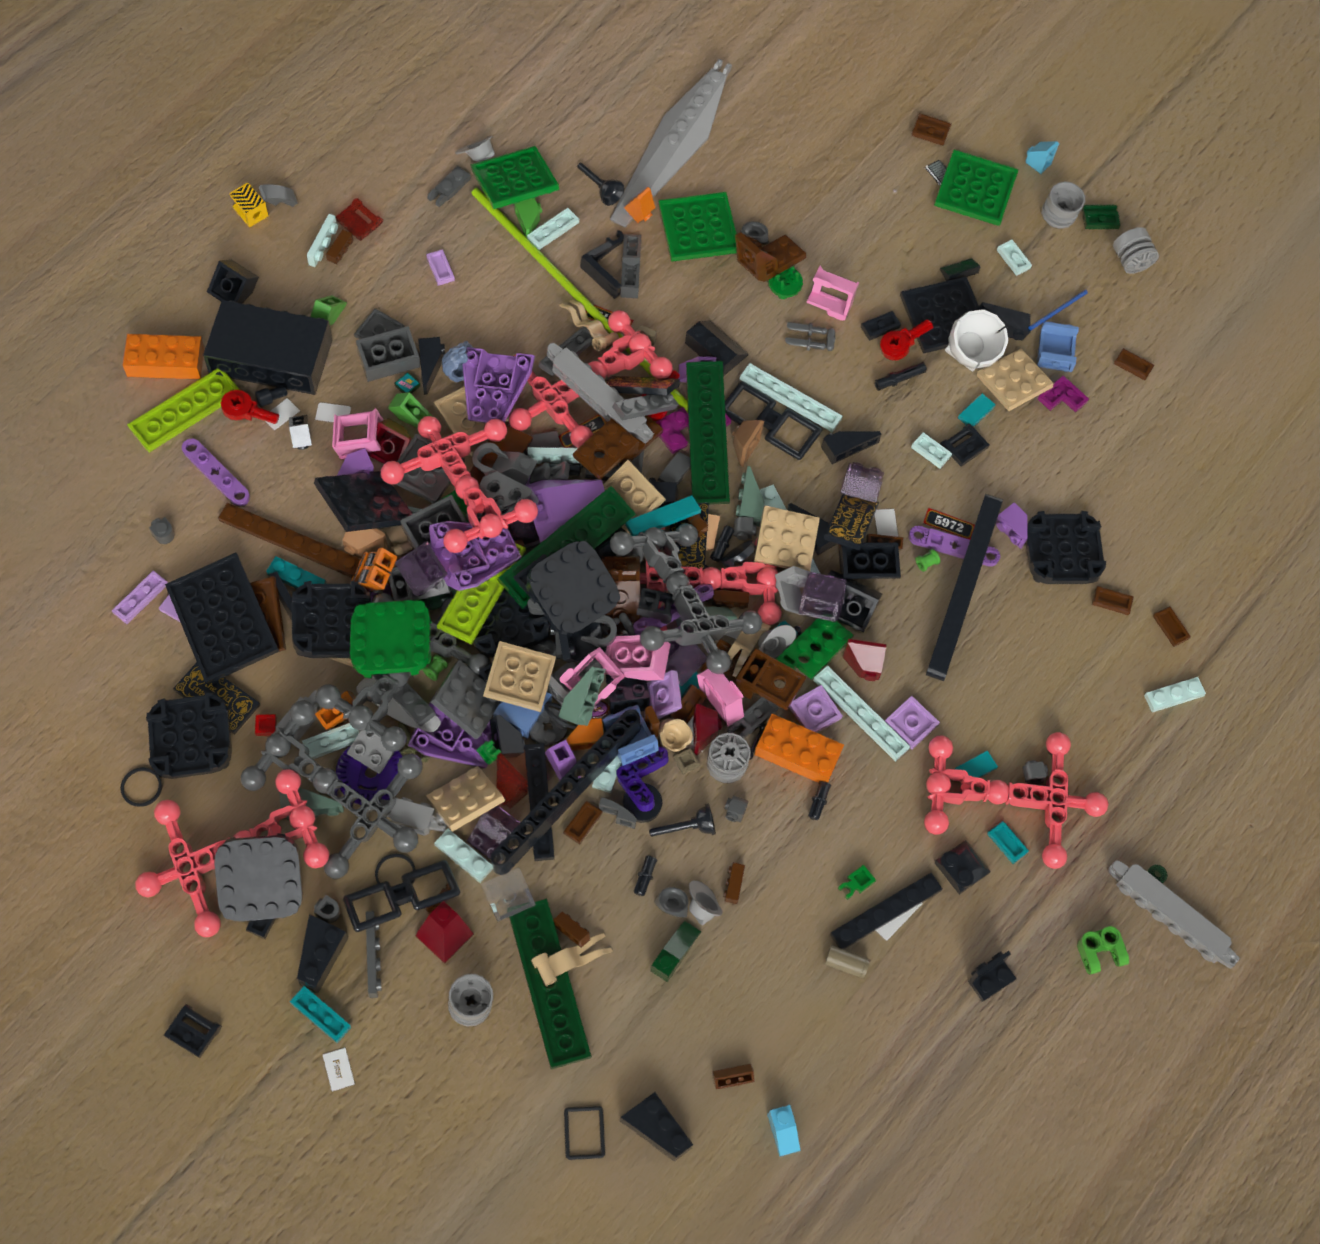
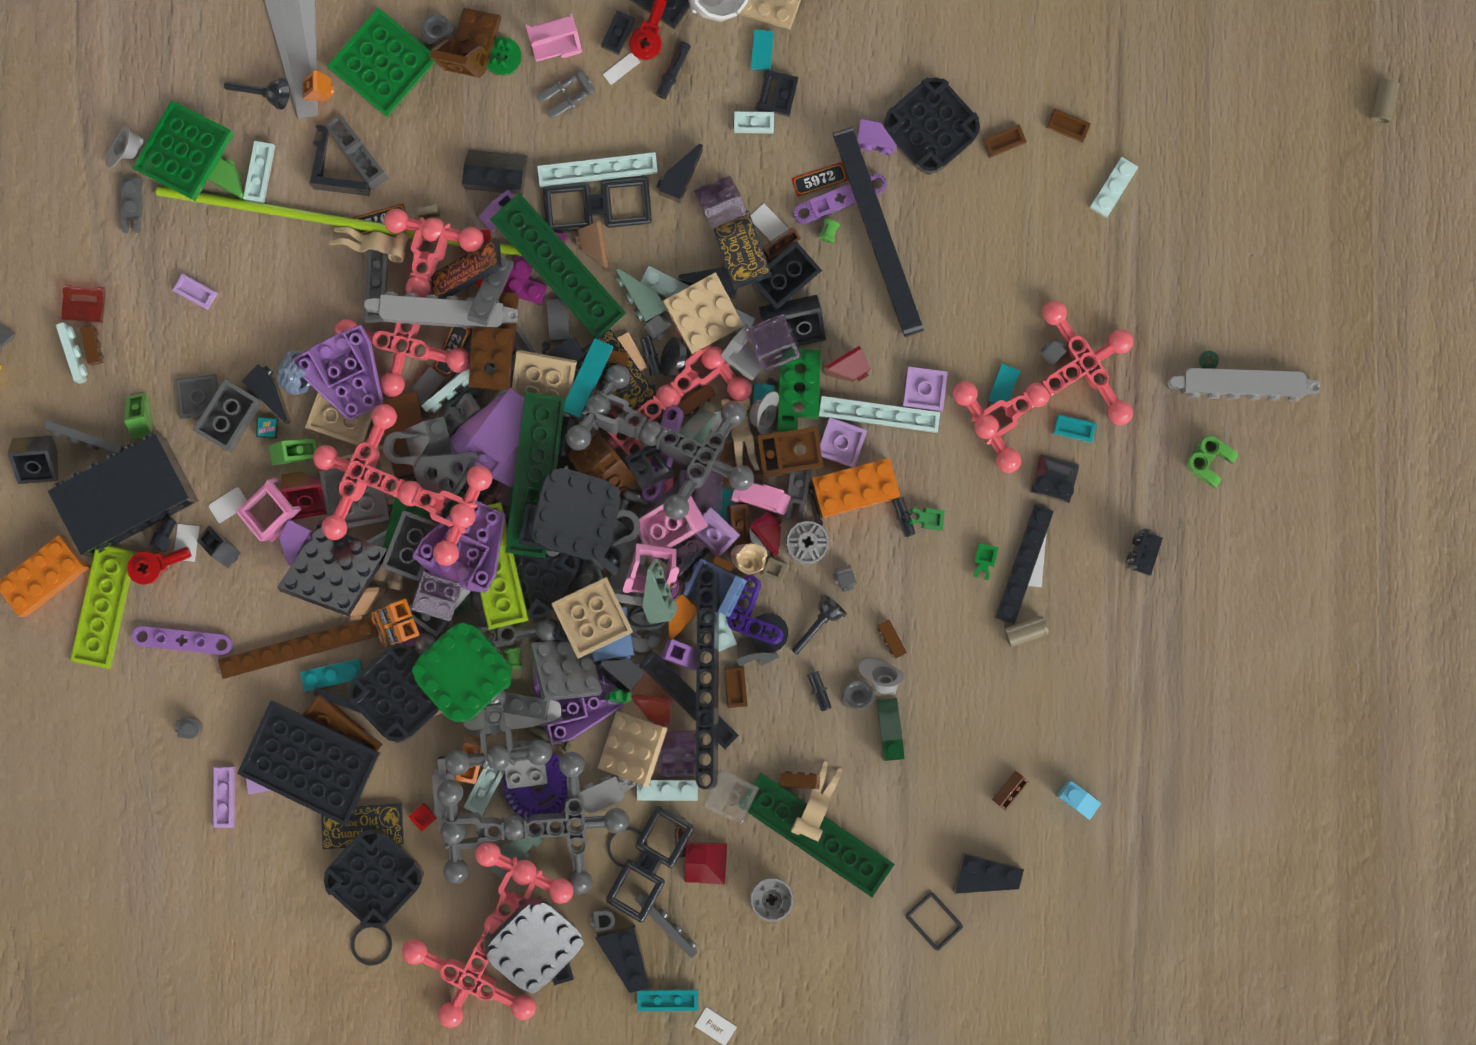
camera: 30 degrees left, 20 degrees up
(274, 290) = (77, 436): none -> dark grey plate
(839, 816) = (930, 518): none -> green plate
(863, 350) = (621, 68): none -> white sticker

